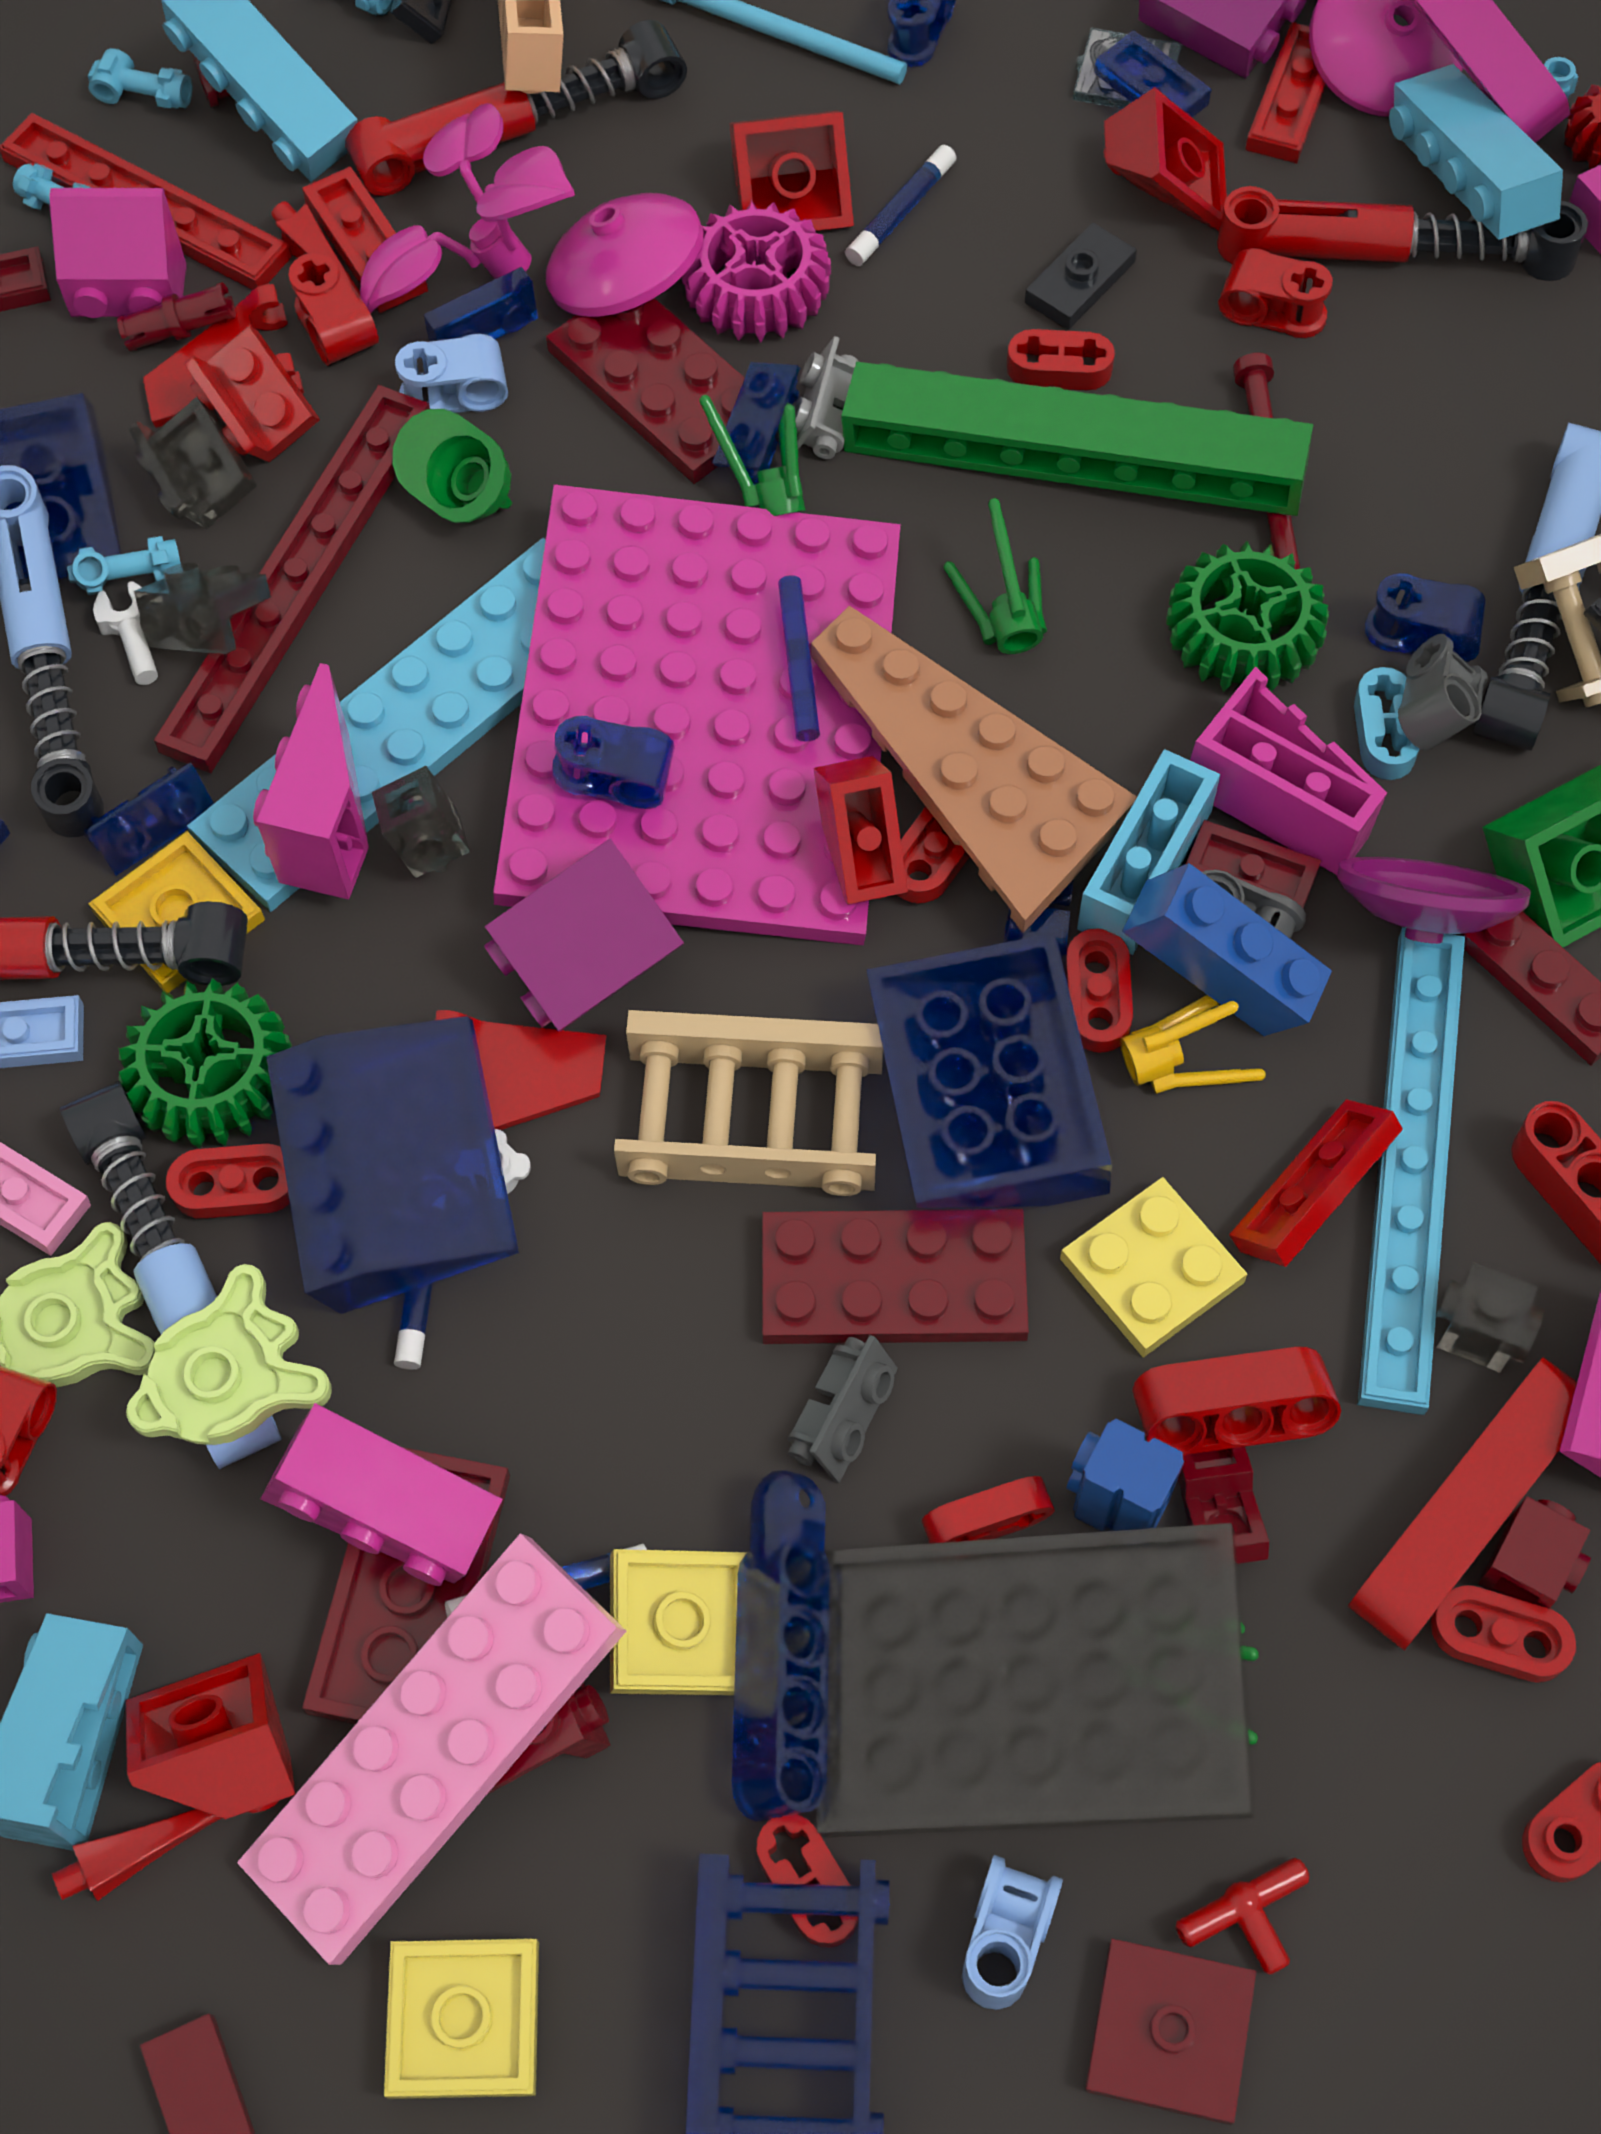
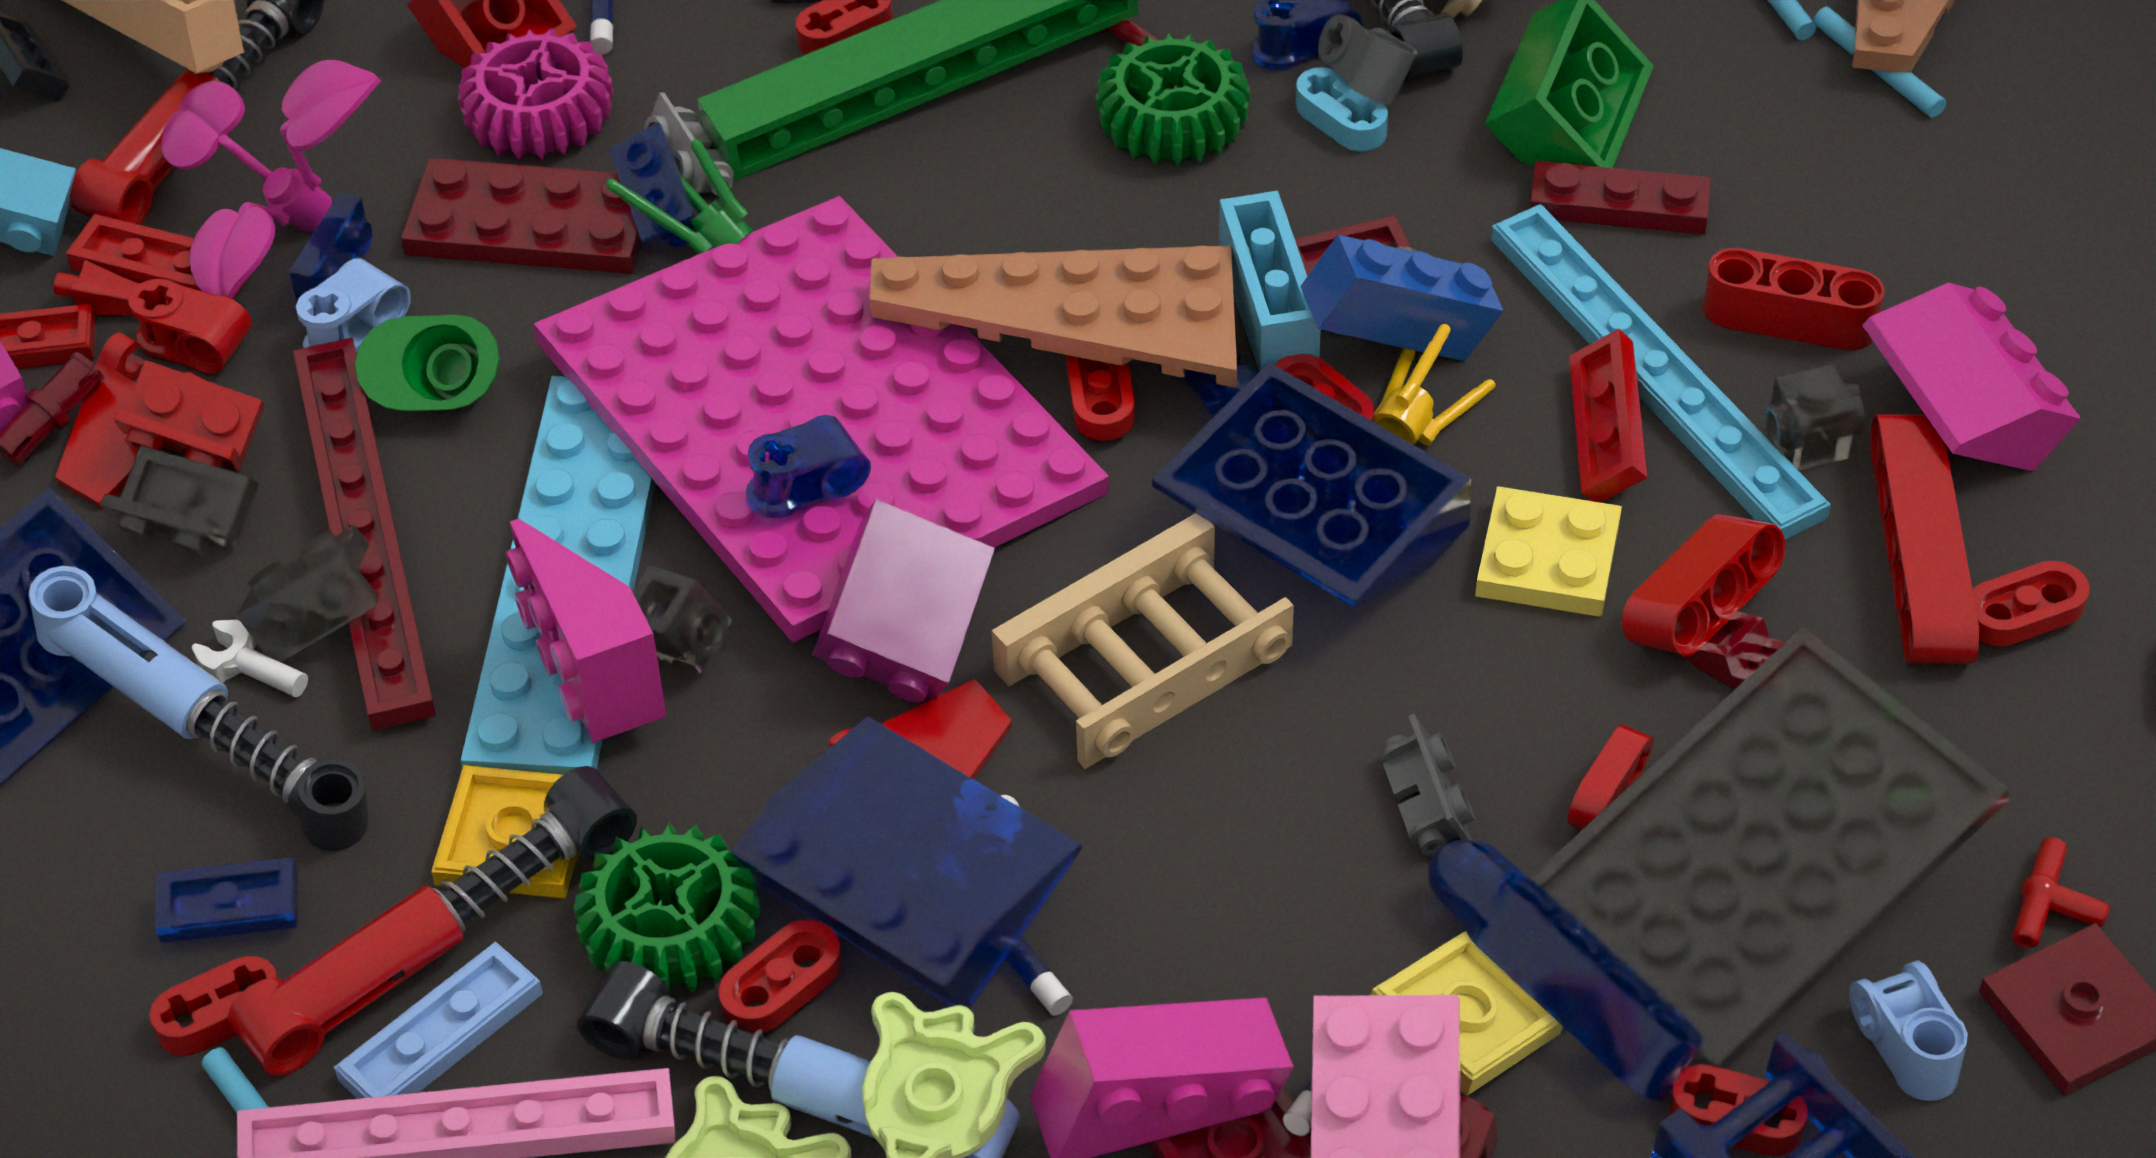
camera: 40 degrees left, 15 degrees down
(93, 570) = (179, 624): medium azure bar -> none
(150, 819) = (424, 769): clear blue hinge -> none
(623, 254) = (413, 140): dark pink dish -> none
(798, 658) = (867, 319): clear blue bar -> none
(861, 828) = (1043, 391): red slope -> none
(894, 1276) = (1358, 687): dark red plate -> none
(1014, 620) = (995, 201): green plant -> none
(1123, 1478) = (1689, 671): blue brick -> none
(1286, 777) = (1321, 176): dark pink wedge -> none
(1431, 895) = (1504, 186): magenta dish -> none
(1538, 1554) = (1999, 533): dark red brick -> none

